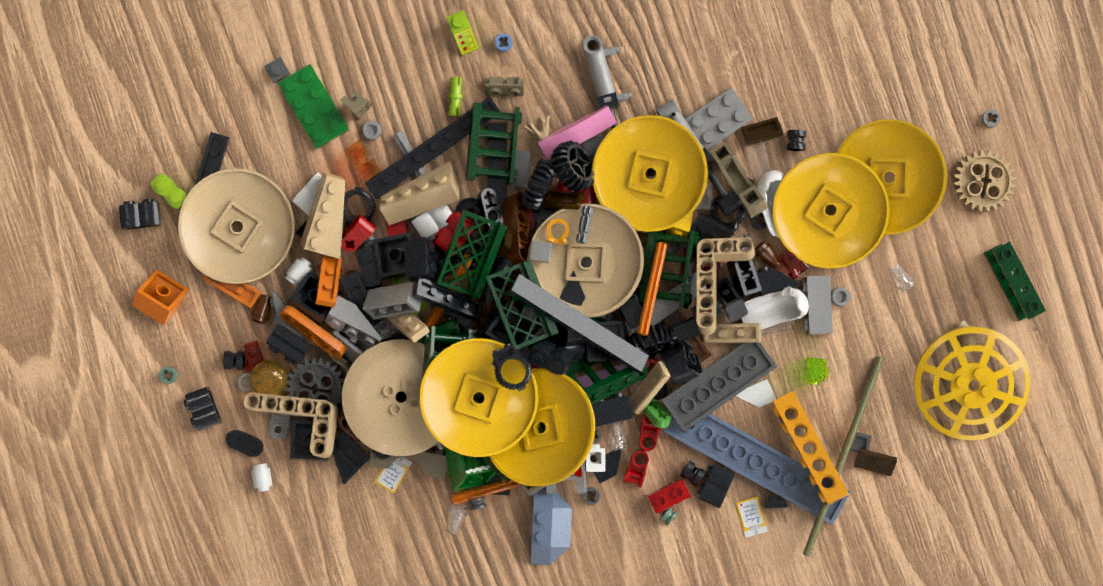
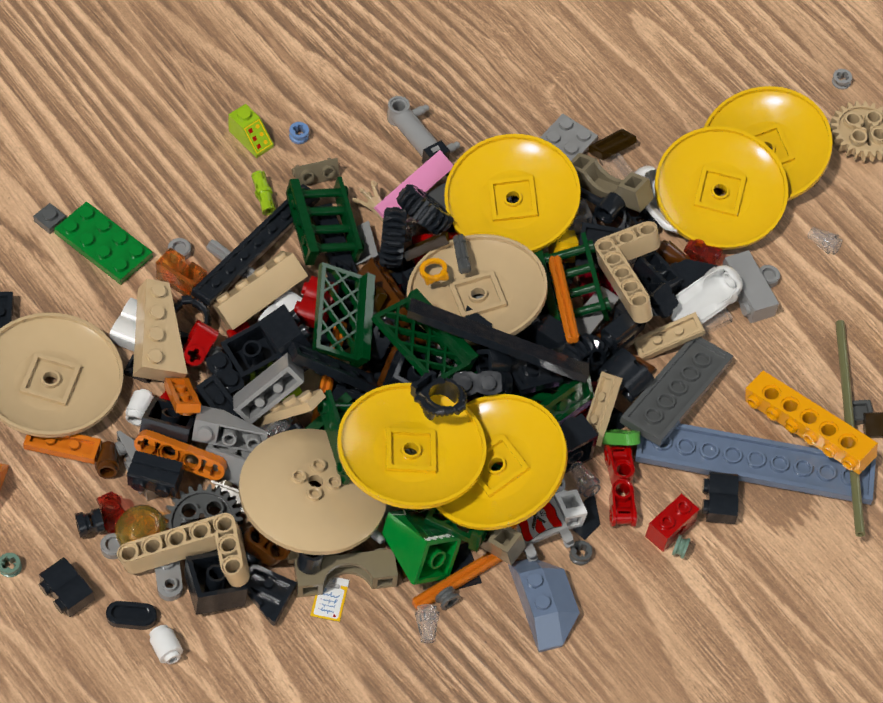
camera: 30 degrees left, 30 degrees down
(358, 106) = (154, 221): dark tan hinge -> none
(541, 251) = (426, 288): light grey tile -> none
(696, 476) = (689, 490): black wheel -> none
(751, 517) = (776, 524): white sticker -> none
(758, 394) = (723, 396): white sticker -> none
(774, 502) = (797, 496): black slope -> none
(796, 140) = (653, 143): black wheel -> none
(815, 370) = (776, 349): clear neon green brick -> none

